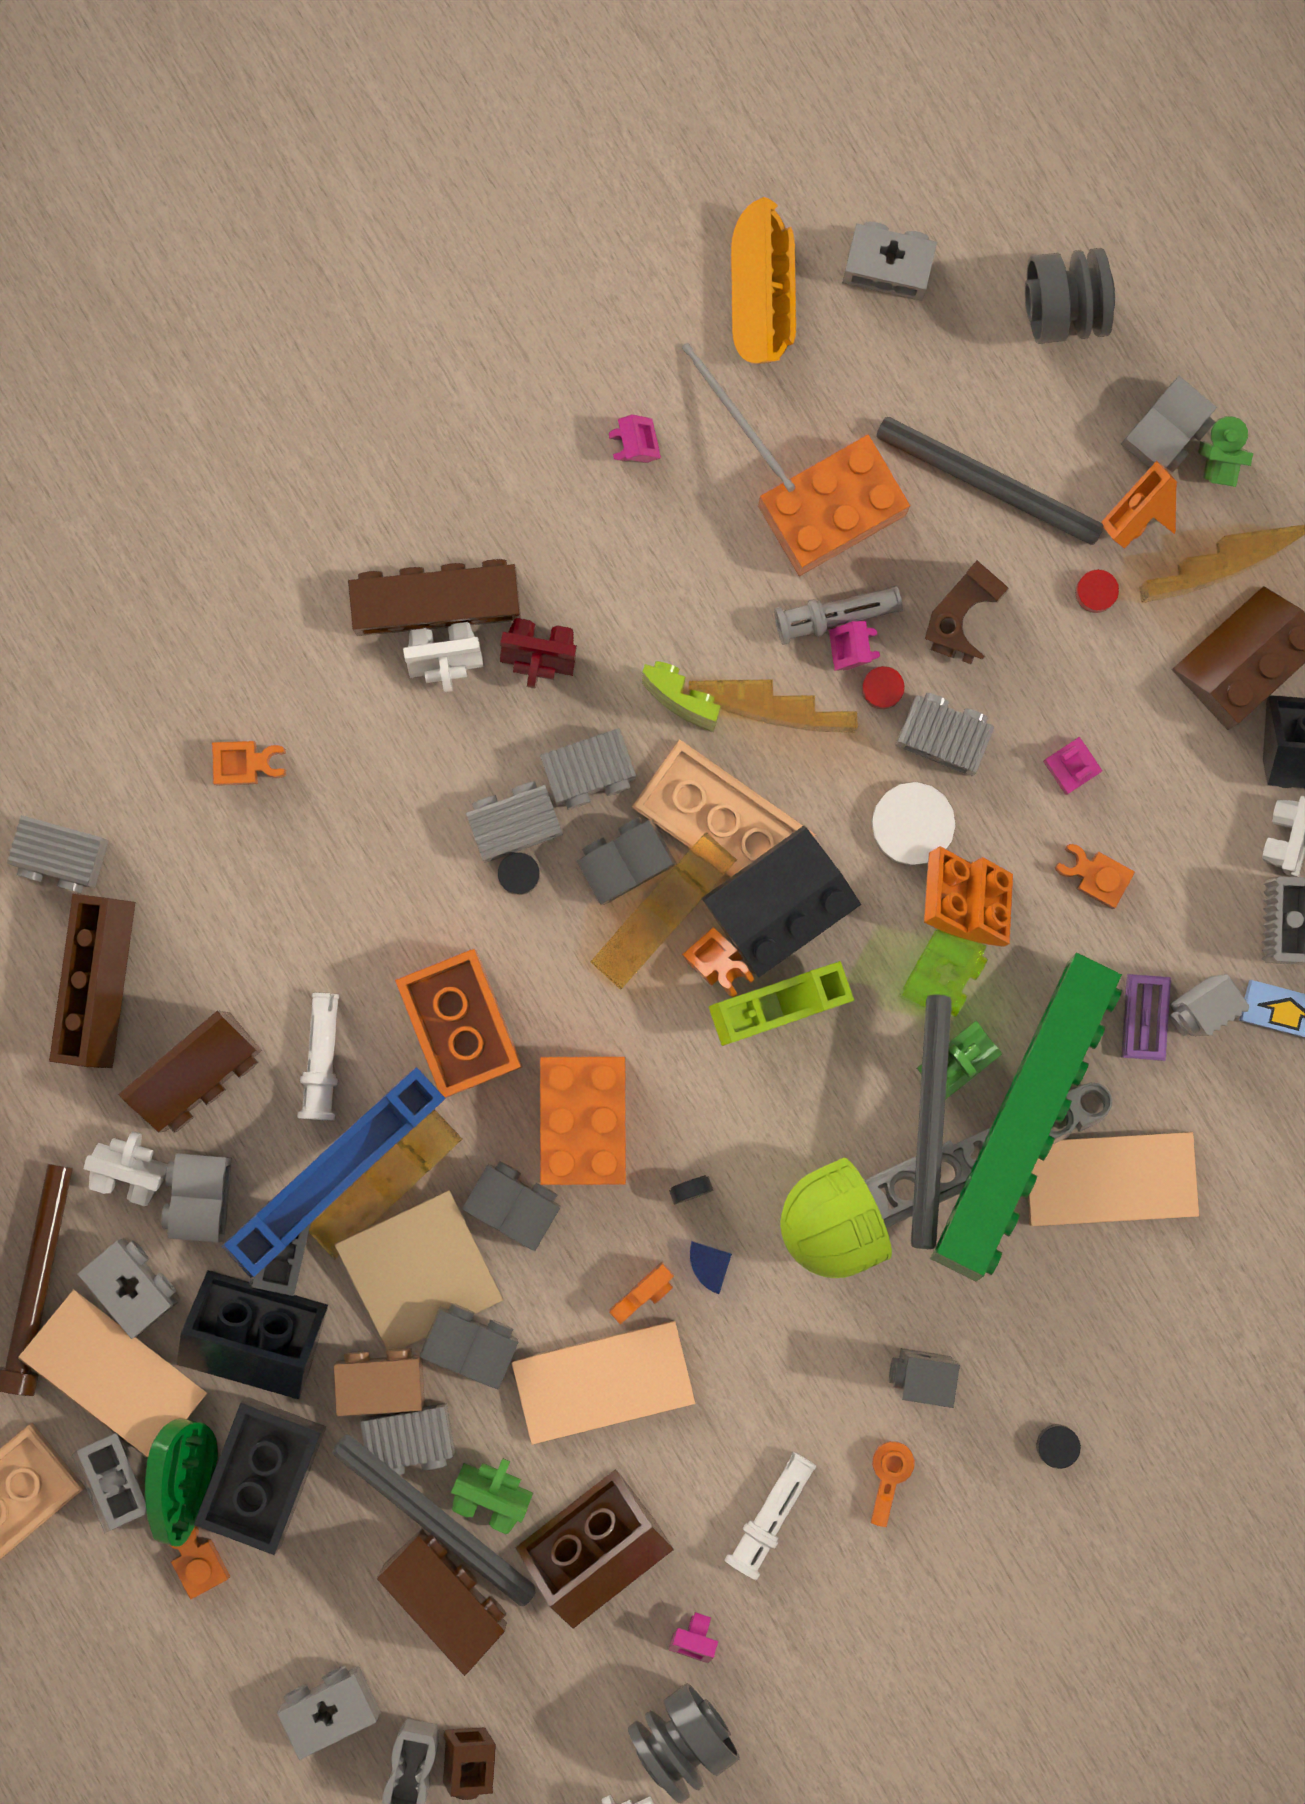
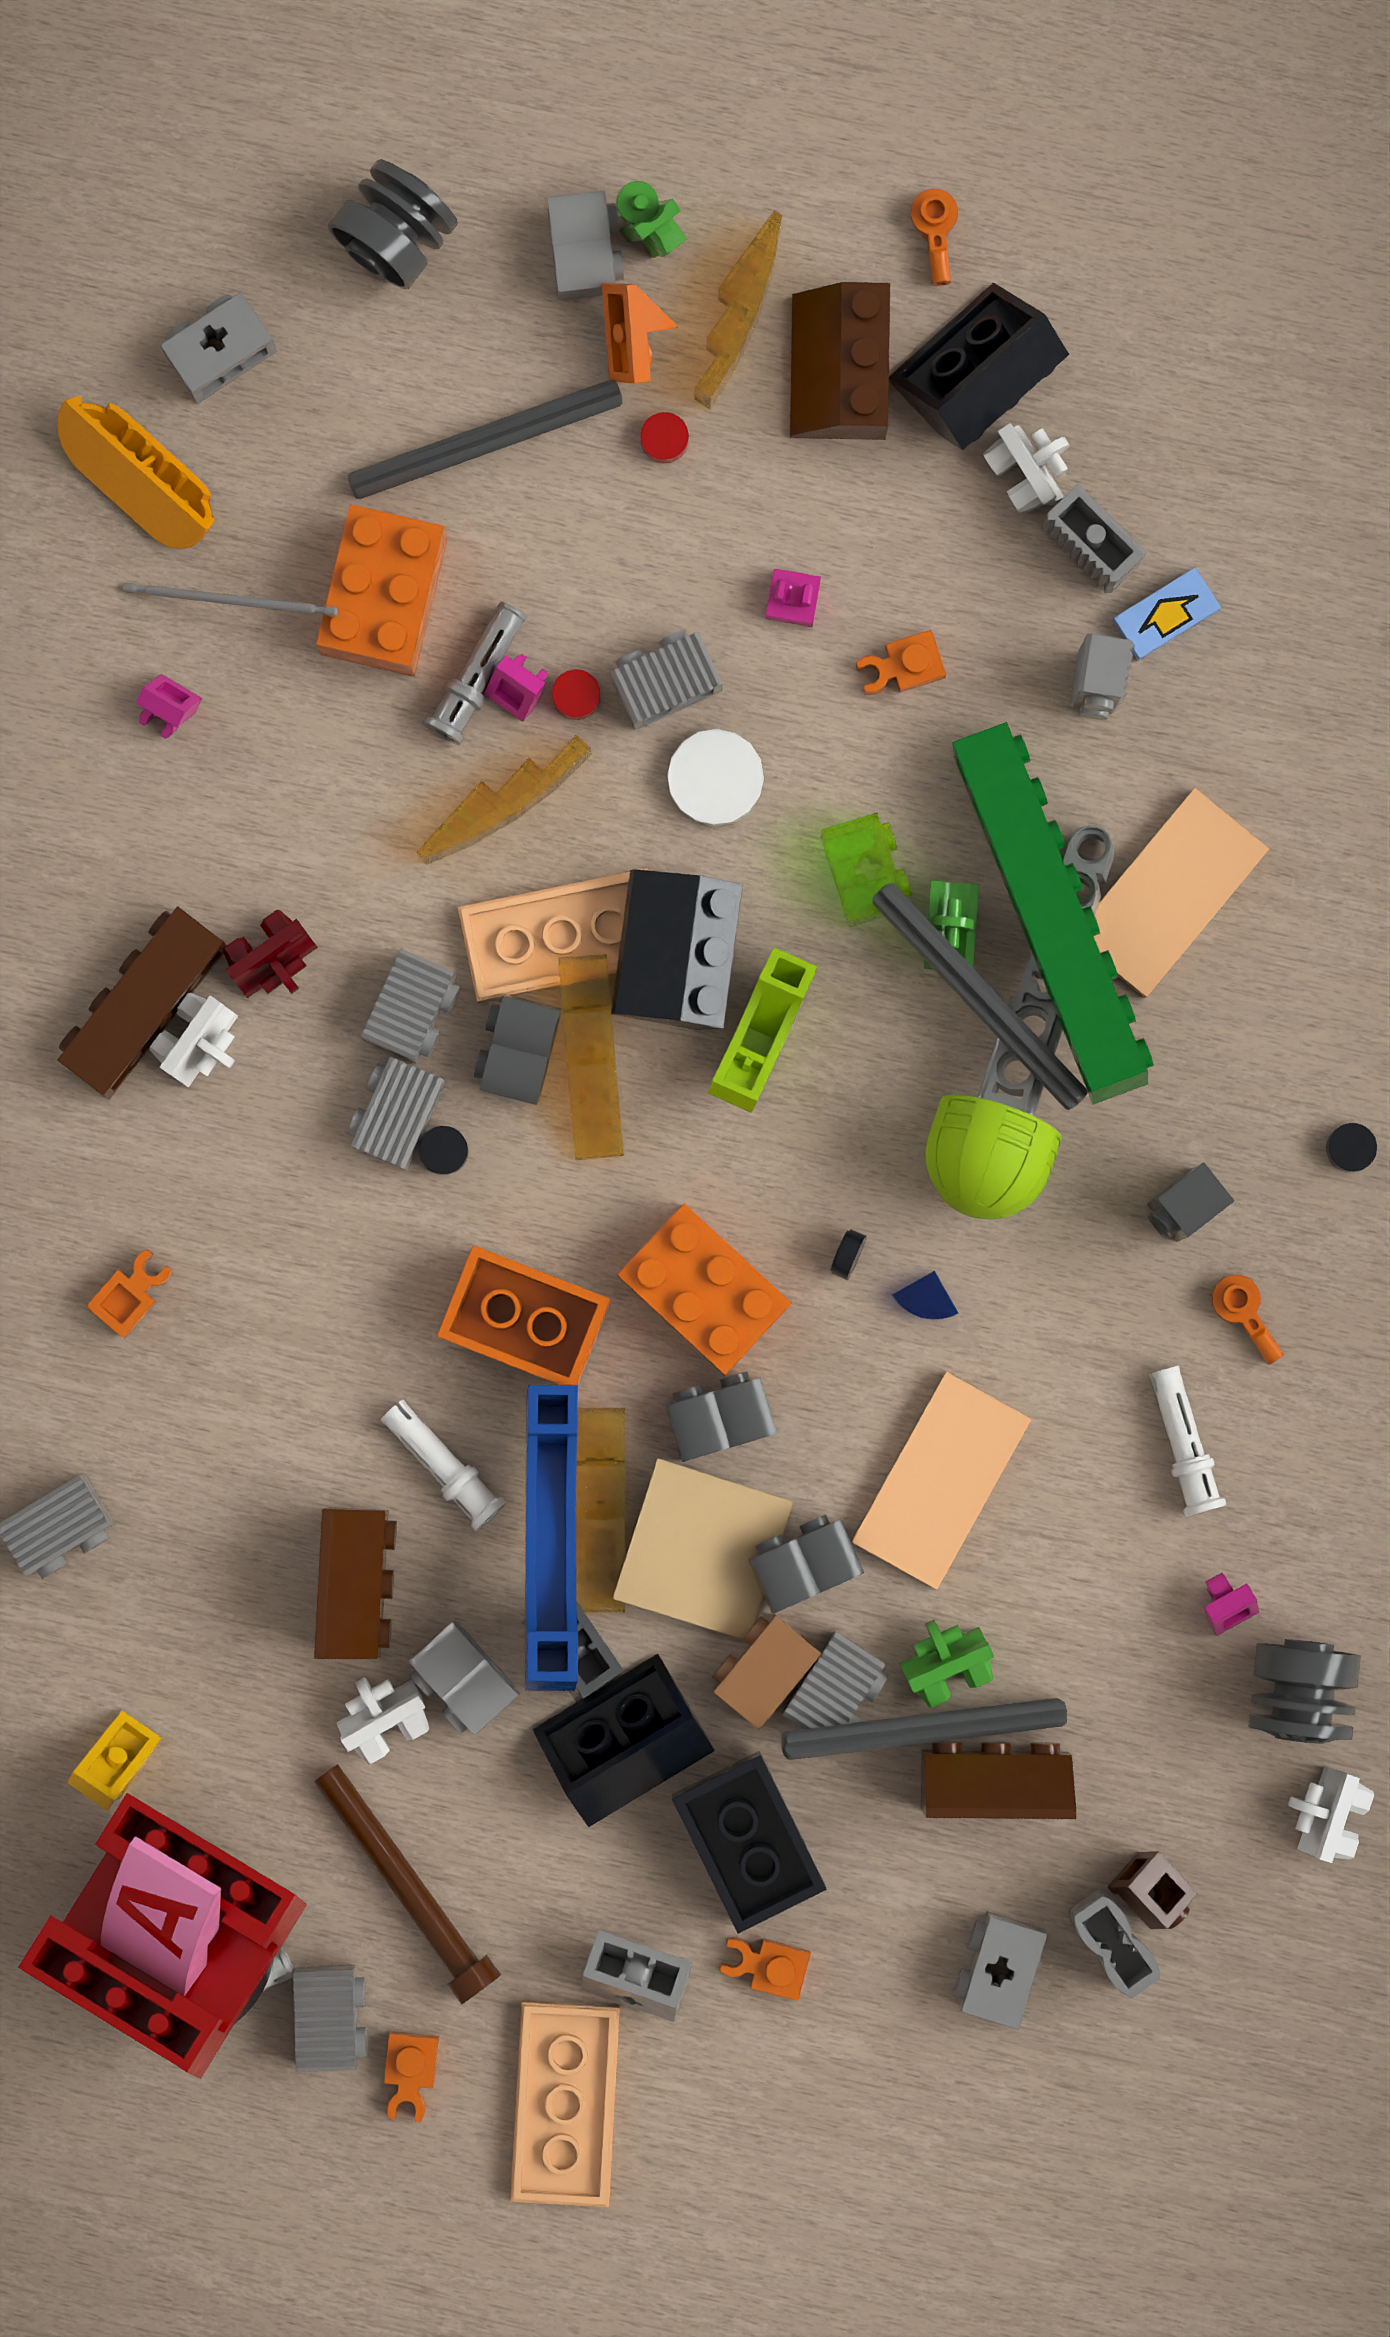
camera: 45 degrees left, 0 degrees up
(92, 981) = (194, 1596): reddish brown brick -> none
(106, 1280) = (460, 1822): light grey brick -> none
(110, 1373) = (547, 1891): light nougat tile -> none
(178, 1478) = (687, 1913): green piece -> none
(593, 1549) = (1073, 1618): reddish brown slope -> none
(652, 1287) = (899, 1362): orange plate -> none
(668, 687) = (404, 876): lime slope -> none
(717, 960) = (674, 1050): orange plate -> none
(968, 898) = (822, 789): orange slope -> none
(973, 588) = (564, 537): reddish brown tile -> none
(1130, 1012) = (1053, 754): medium lavender tile -> none

